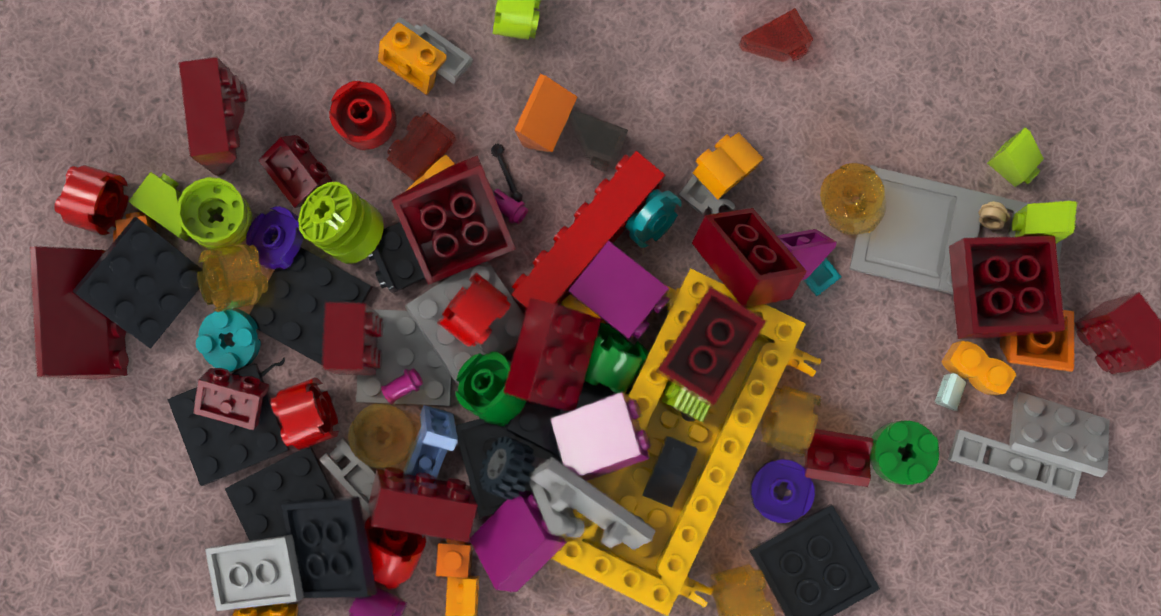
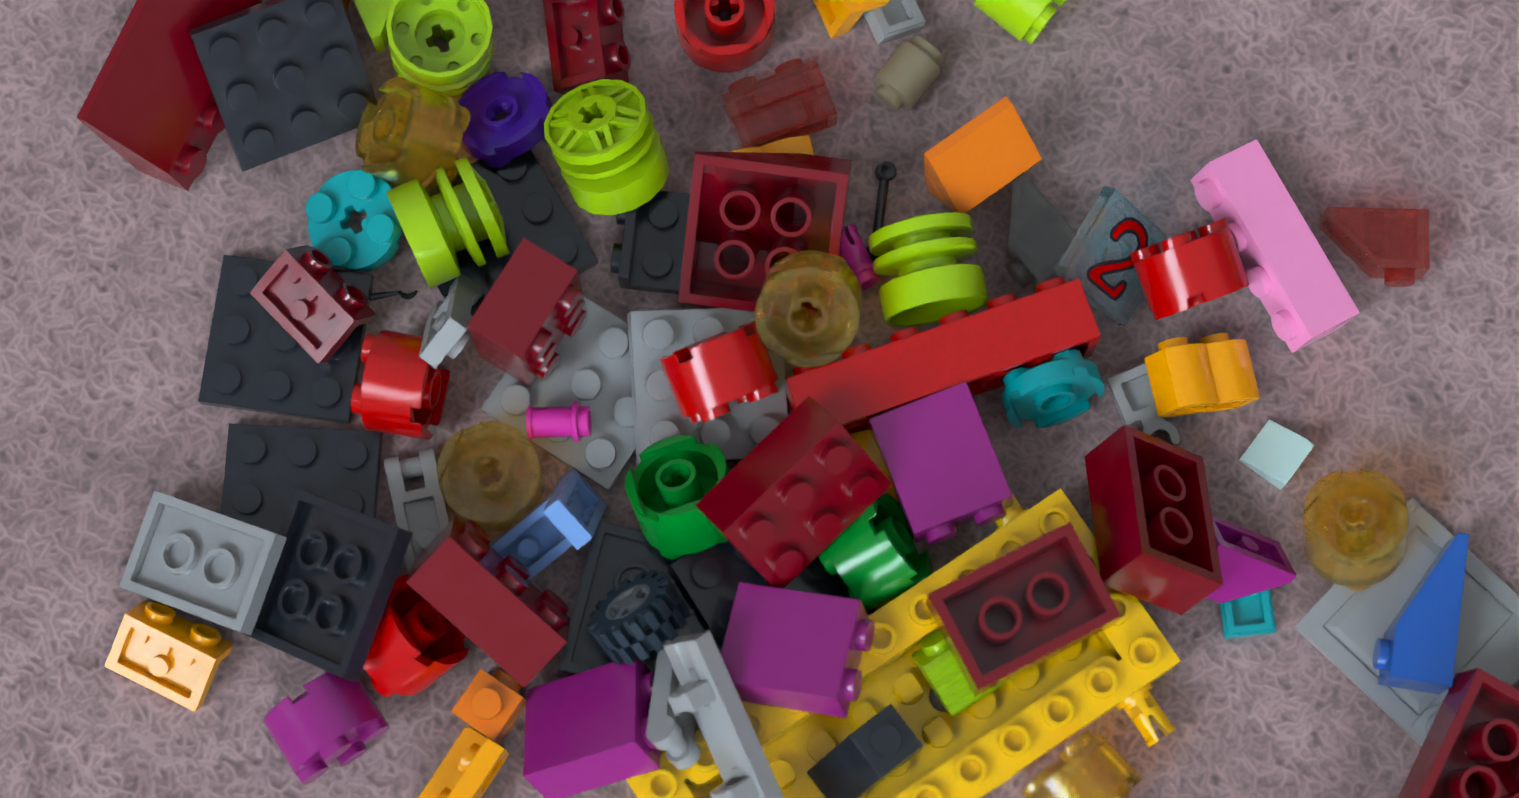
camera: 30 degrees right, 5 degrees down
(278, 314) = (448, 222): none -> lime wheel
(310, 368) = (448, 322): none -> light grey plate
(479, 91) = (907, 74): none -> dark tan brick
(493, 264) = (786, 324): none -> clear yellow brick
(546, 184) = (926, 259): none -> lime wheel
(644, 126) = (1102, 254): none -> clear light blue tile
(690, 111) = (1190, 269): none -> red brick
(724, 73) = (1275, 246): none -> bright pink brick
(788, 183) = (1276, 453): none -> light aqua slope
(920, 235) = (1423, 637): none -> blue slope

